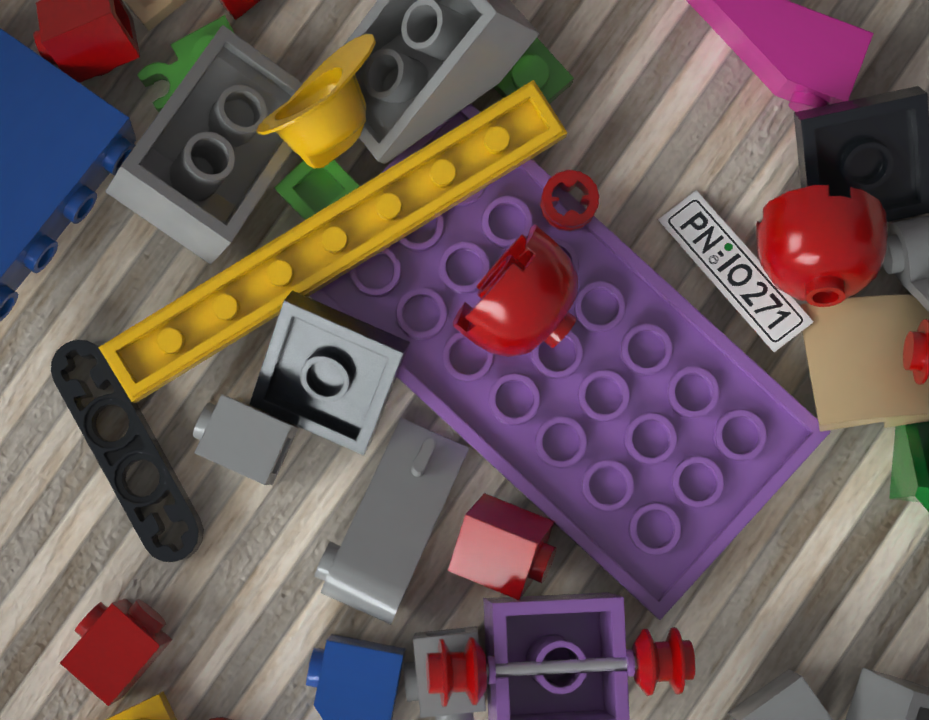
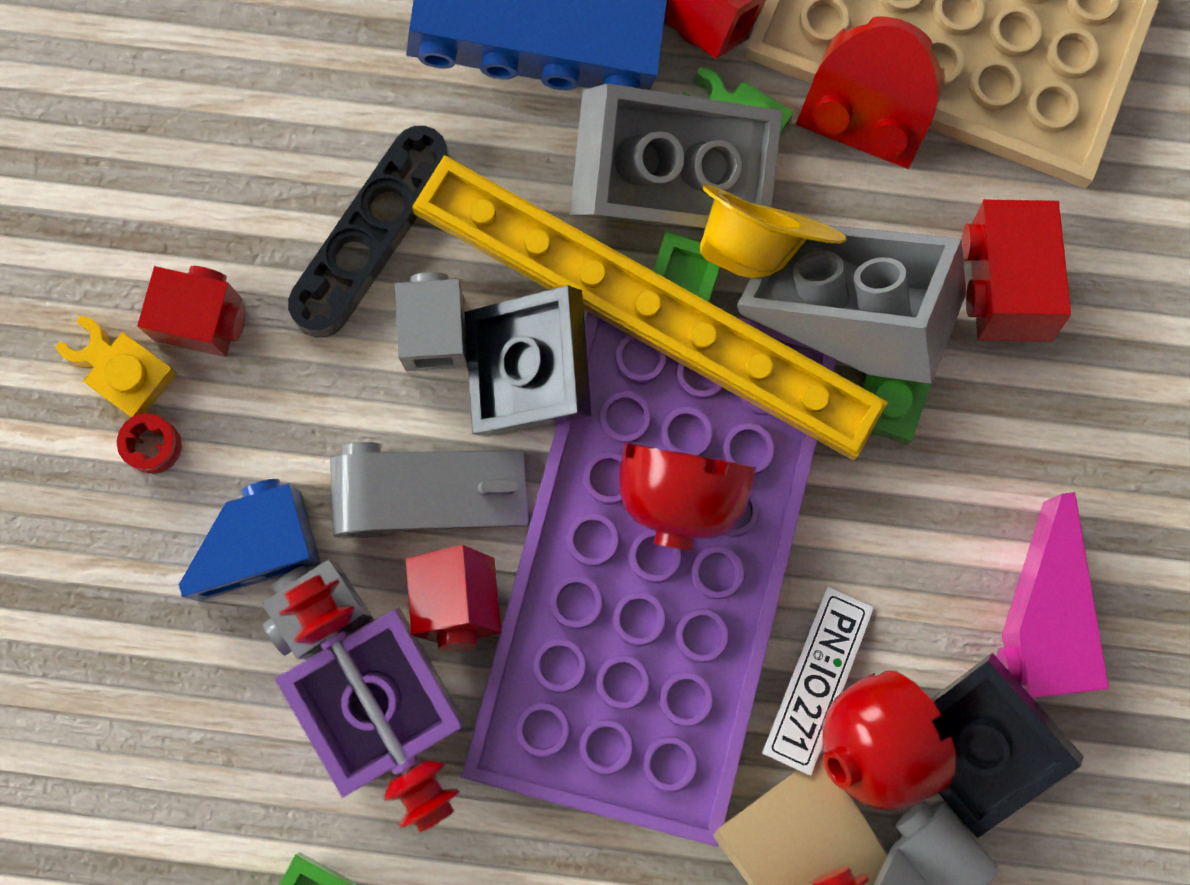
camera: 60 degrees right, 5 degrees down
(567, 181) = (813, 482): red bush -> none

